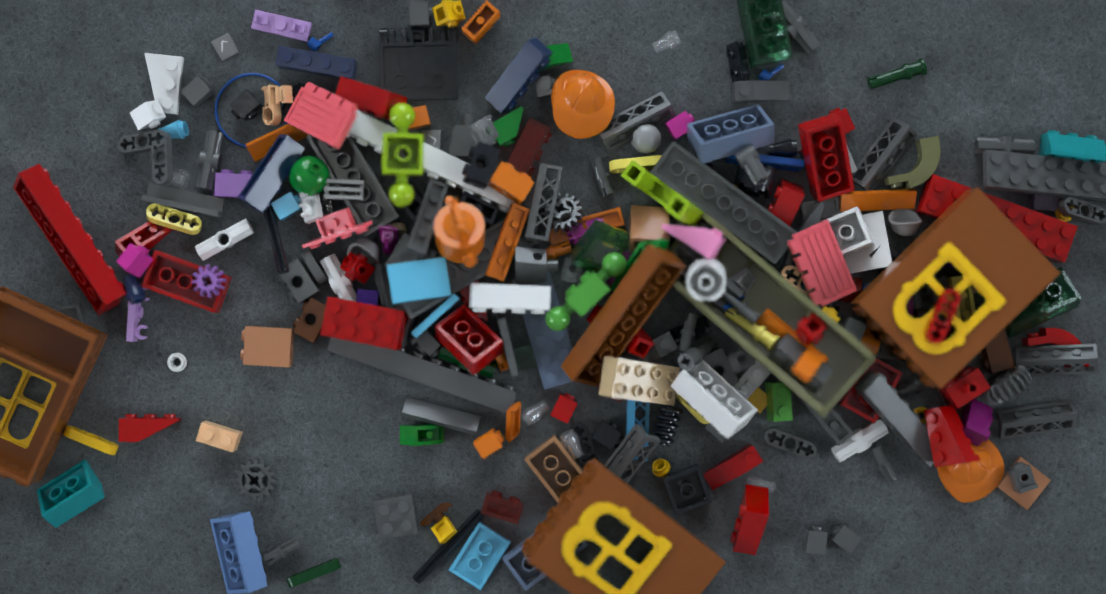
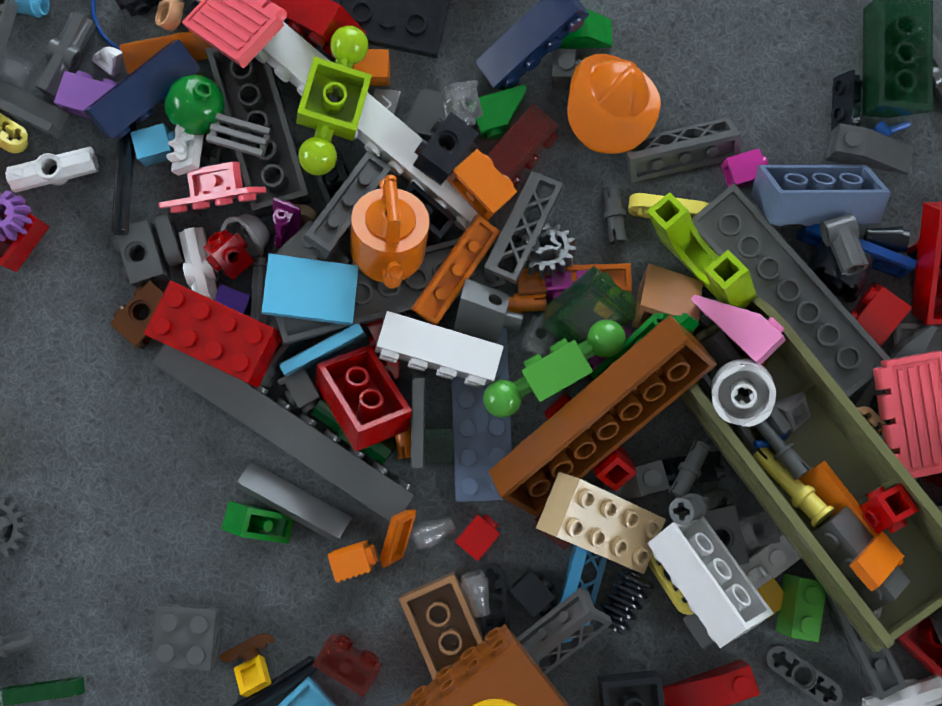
camera: 10 degrees right, 5 degrees down
(239, 155) = (109, 60): none -> white tile
(267, 346) = (69, 336): nougat brick -> none
(646, 139) = (692, 176): light grey hair -> none
(661, 467) = (599, 657): yellow plate -> none
(668, 41) = (753, 50): clear cone -> none

